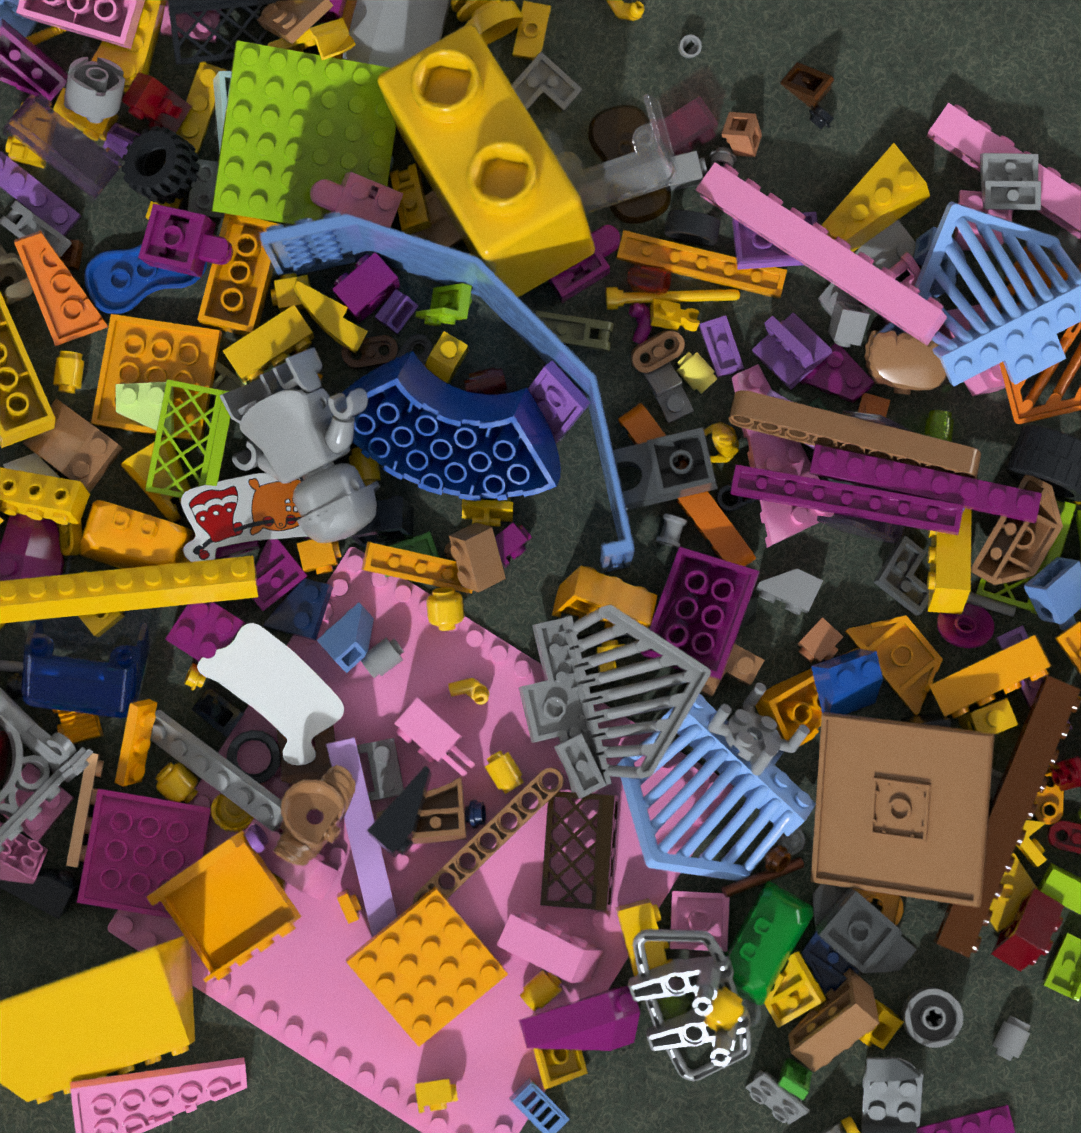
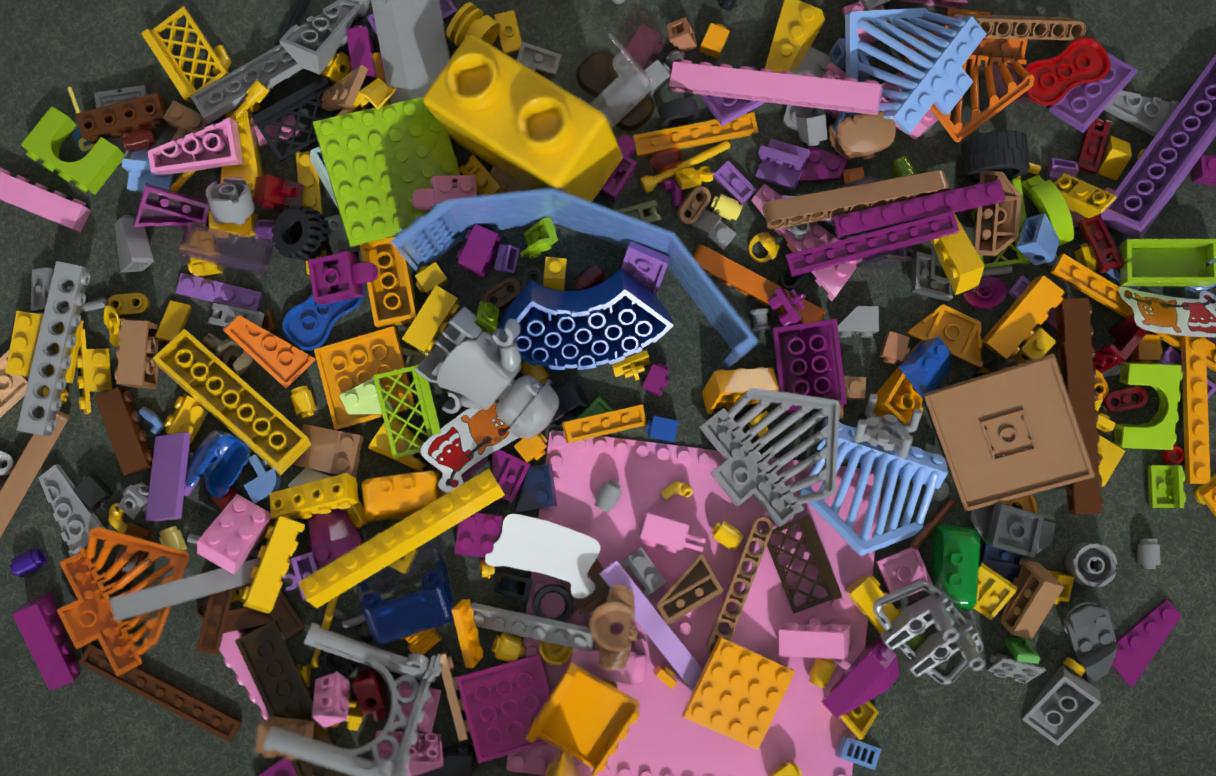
camera: 30 degrees left, 0 degrees up
(256, 838) = (583, 662): medium lavender piece -> none
(329, 317) = (464, 282): yellow slope -> none
(337, 372) = (487, 317): none -> lime bracket
(349, 637) = (579, 493): medium blue slope -> none
(399, 821) = (675, 604): black slope -> none
(445, 608) = (634, 443): yellow head -> none
(475, 813) = (721, 572): dark blue plate -> none
(476, 557) = (640, 398): medium nougat brick -> none
(487, 608) = (662, 429): none -> blue brick
(580, 766) = (777, 507): light grey plate -> none
(658, 464) = (733, 279): dark grey brick -> none
(715, 527) = (782, 298): none -> magenta hips
(725, 1010) = (964, 627): yellow head -> none
(766, 446) = (799, 233): none -> light grey plate
(777, 859) = (937, 507): reddish brown plate -> none
(781, 158) = (714, 40): none -> light orange brick
(1029, 931) = (1129, 477): dark red brick -> none

